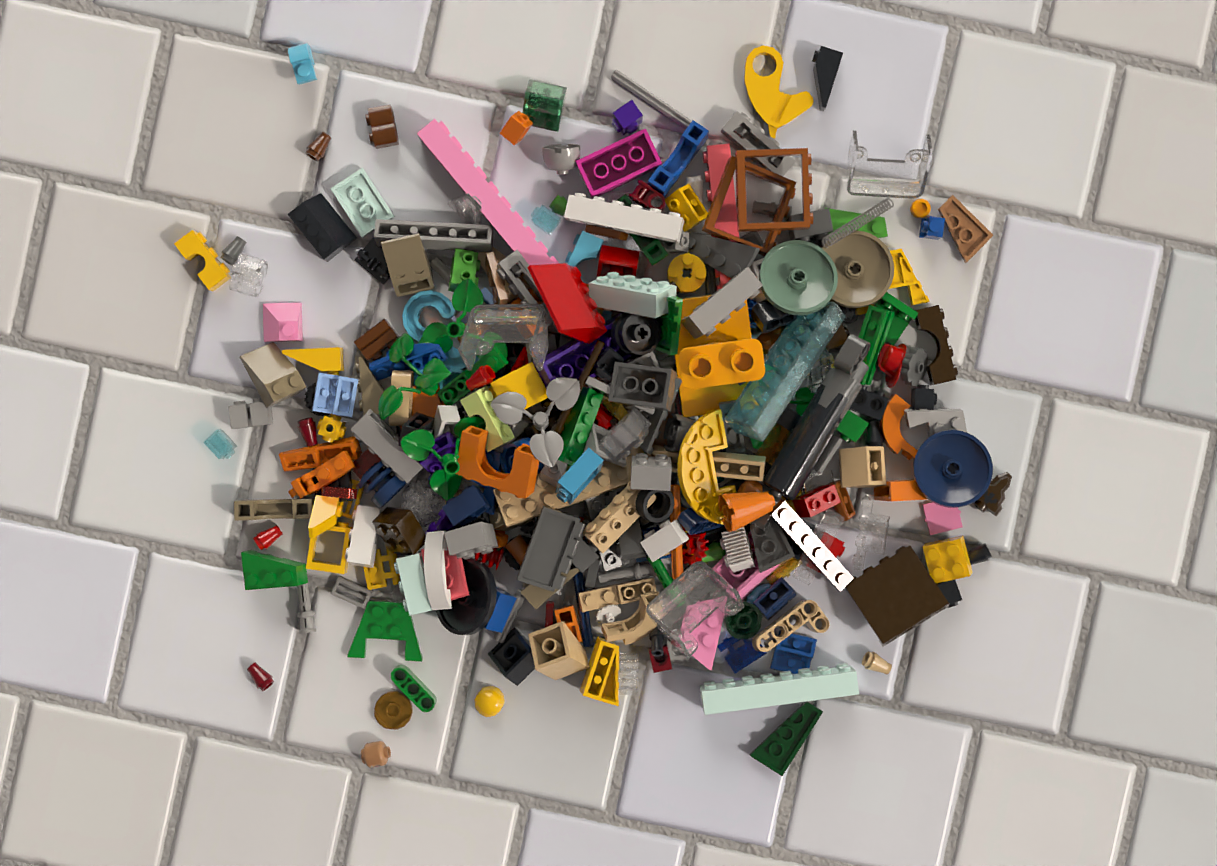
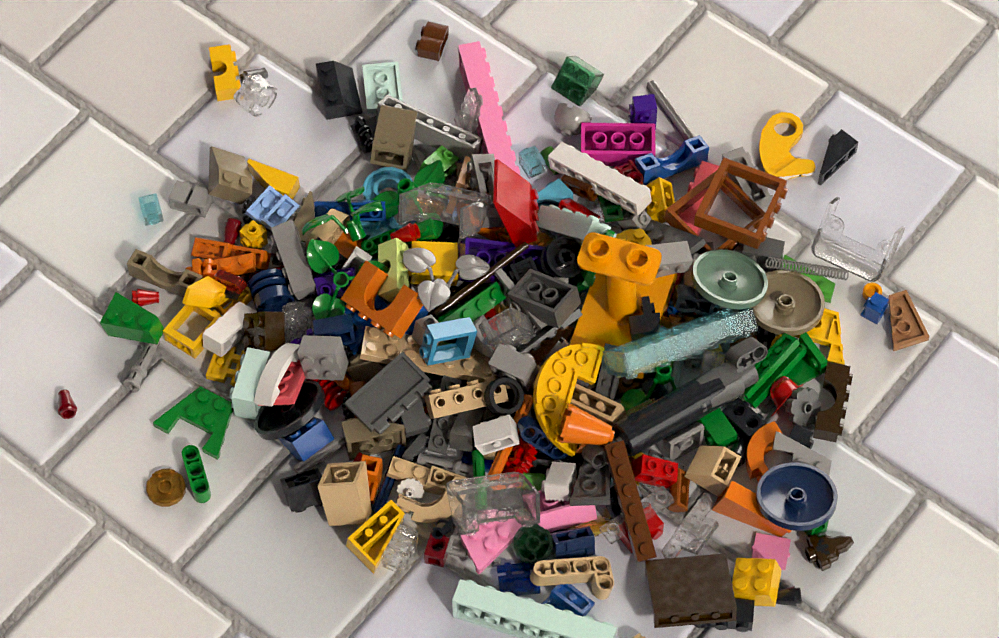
camera: 25 degrees right, 30 degrees down
(282, 322) = (261, 146): bright pink slope -> none
(318, 147) = (369, 34): reddish brown cone -> none
(367, 598) = (204, 381): light grey tile -> none
(375, 754) = (127, 513): medium nougat head -> none
(376, 340) = (331, 187): reddish brown brick -> none
(489, 701) = (257, 518): yellow hair -> none
(516, 127) = (545, 84): orange brick -> none
(697, 185) = (678, 188): white cone -> none

